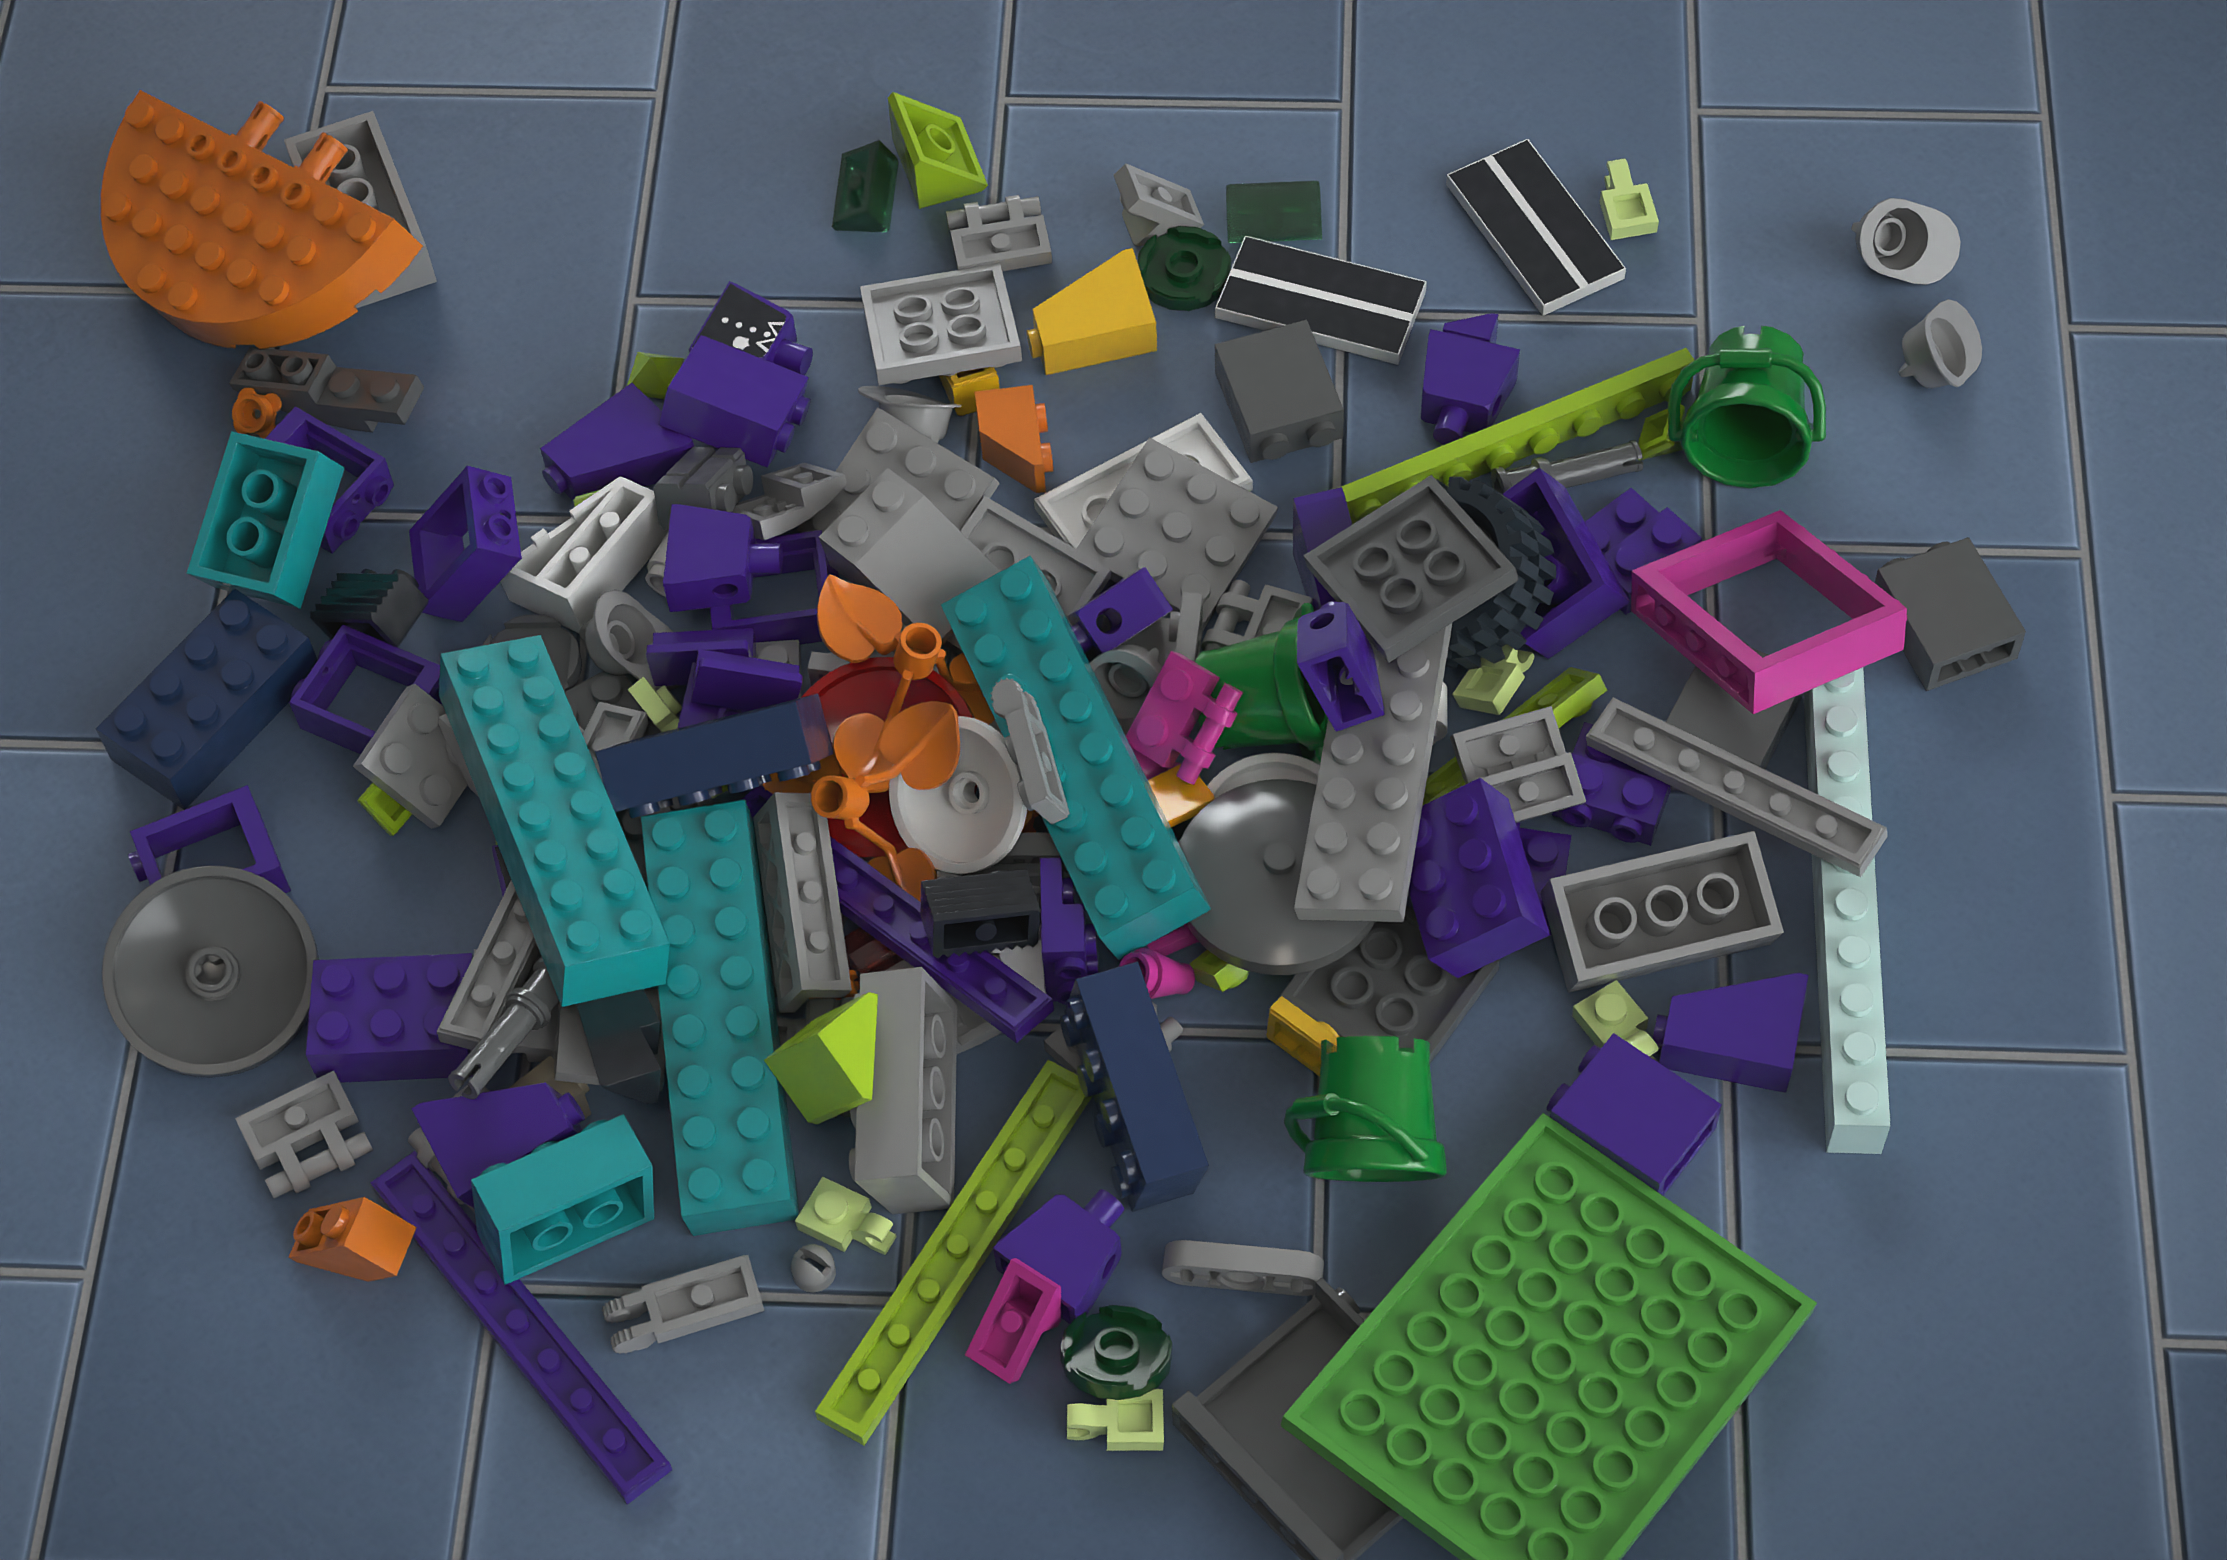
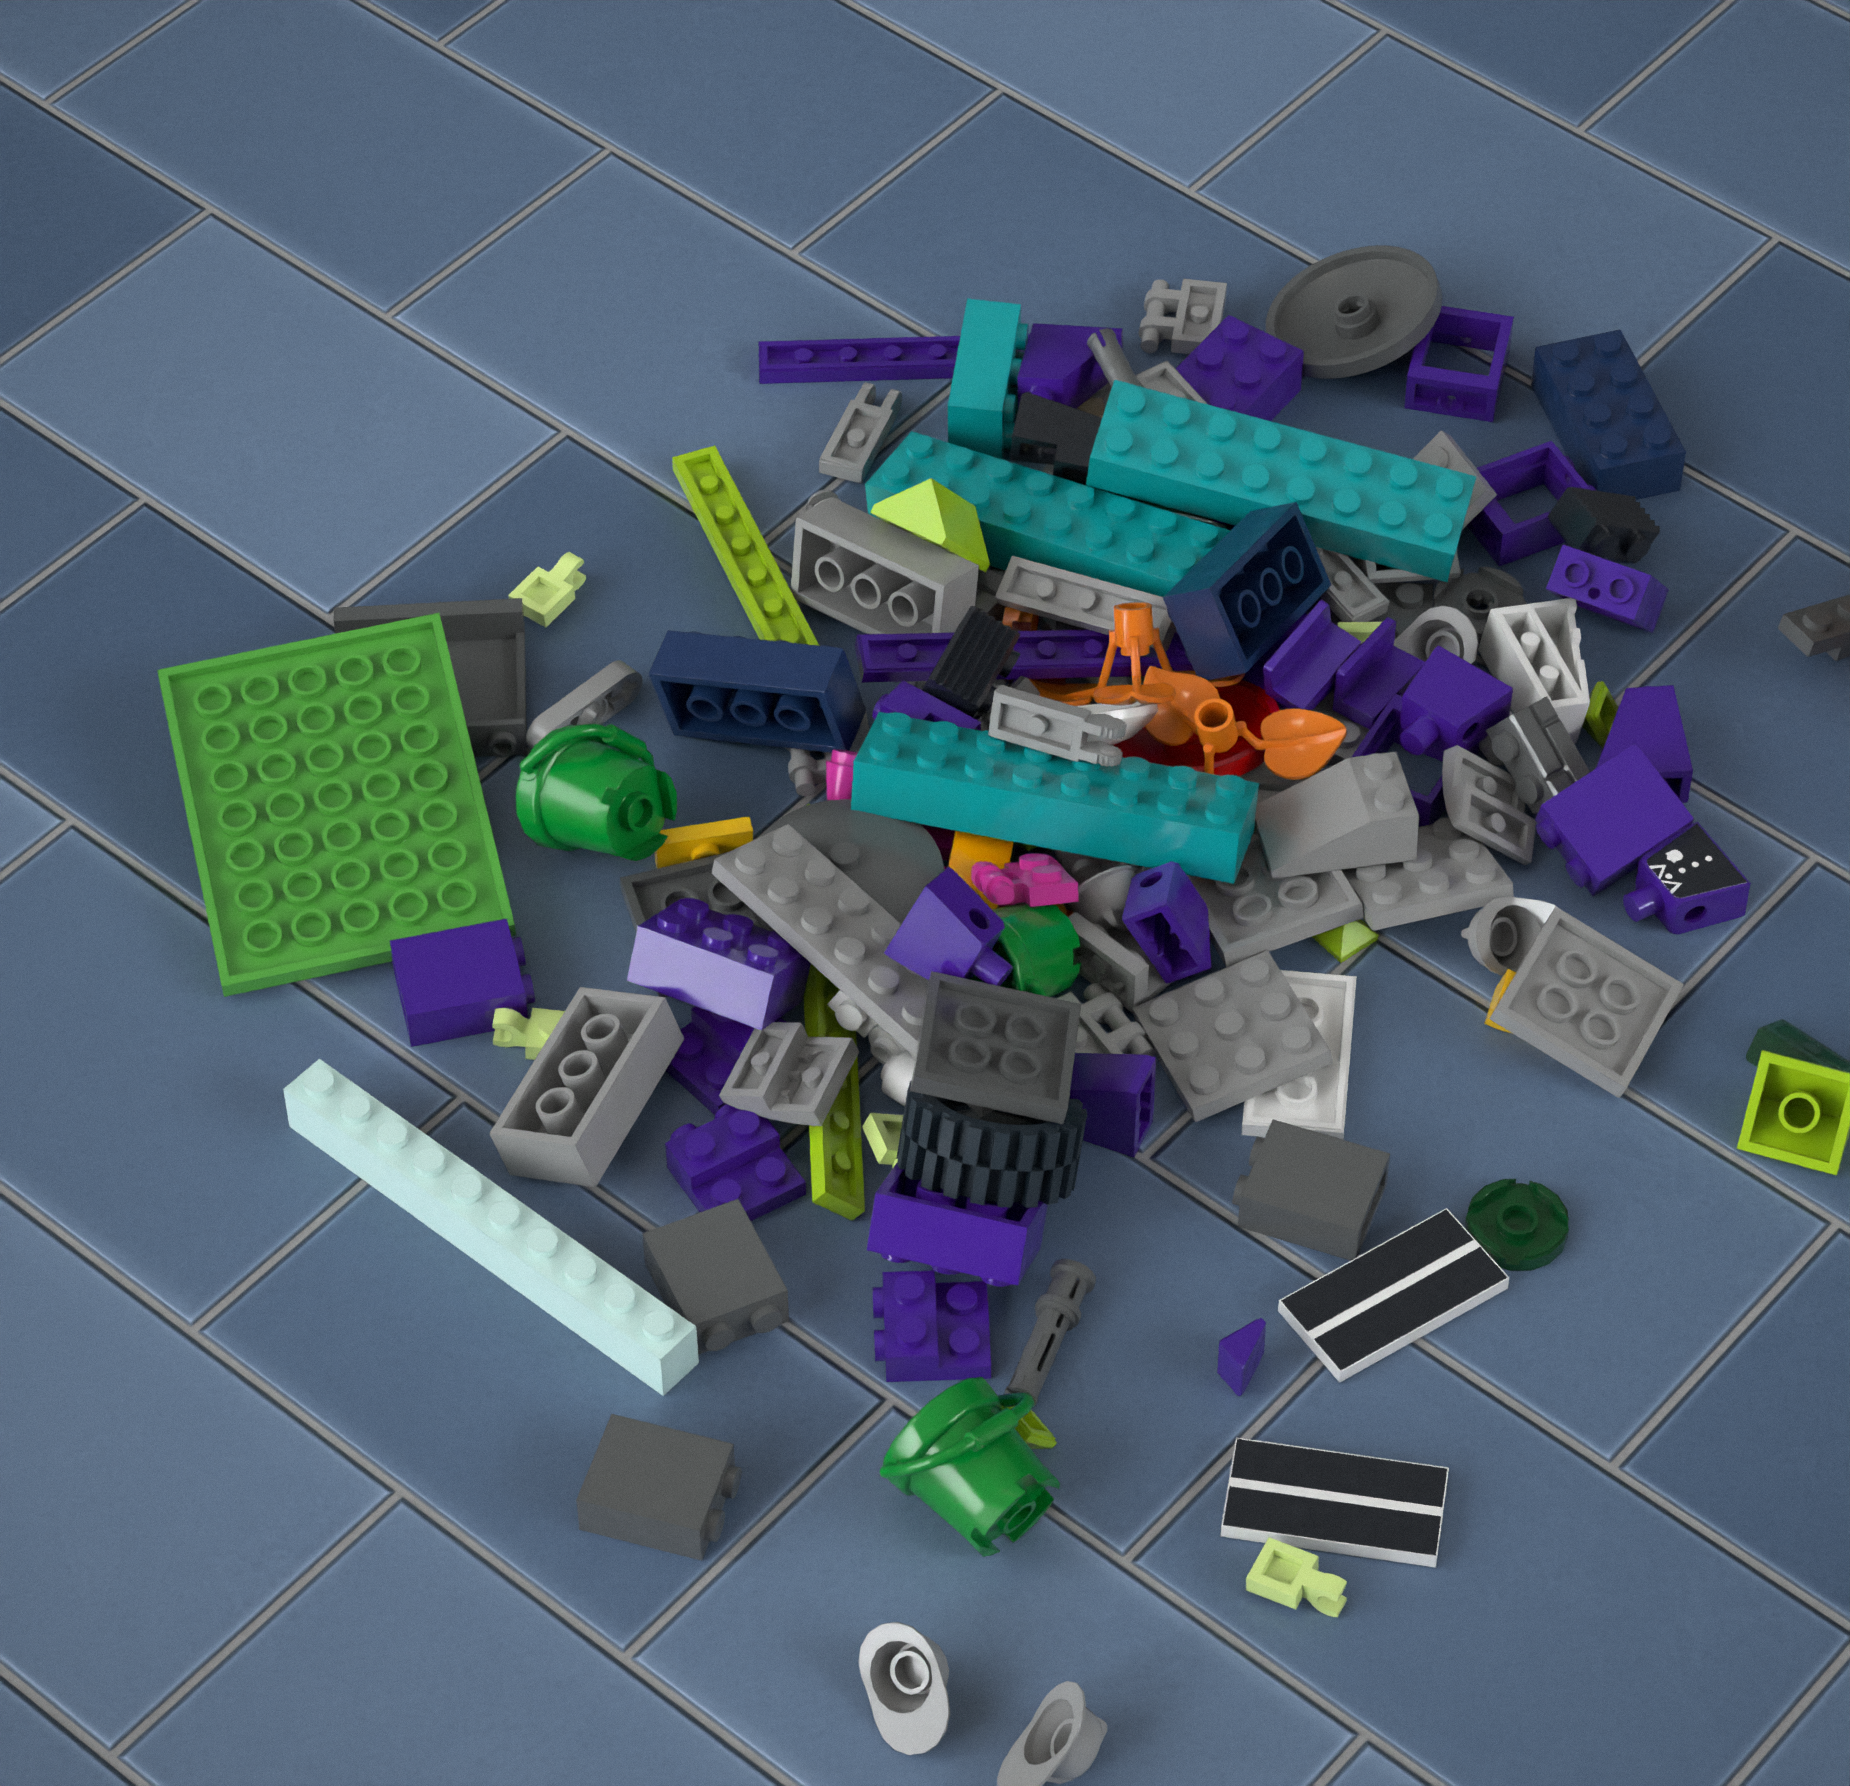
camera: 125 degrees right, 10 degrees down
(265, 519) = (1728, 481): teal brick -> none
(352, 1239) = (1074, 295): orange slope -> none
(363, 495) = (1768, 534): dark purple window -> none
(654, 373) = (1719, 822): lime slope -> none
(1010, 434) = (1428, 992): orange slope -> none
(1012, 243) = (1649, 1104): light grey plate -> none
(1014, 1321) = (671, 577): dark pink slope -> none
(1068, 1247) = (687, 607): dark purple torso -> none
(1095, 318) = (1504, 1119): yellow slope -> none
(1116, 1352) = (595, 610): dark green tile -> none
(1153, 204) = (1595, 1227): light grey slope -> none
(1274, 211) = (1519, 1320): clear green slope -> none
(1465, 384) = (1195, 1312): dark purple torso -> none
(1525, 434) = (1104, 1335): lime plate -> none
(1735, 1031) = (458, 1084): dark purple slope -> none
(1737, 787) = (634, 1191): light grey tile -> none
(1754, 681) = (784, 1250): dark pink window -> none

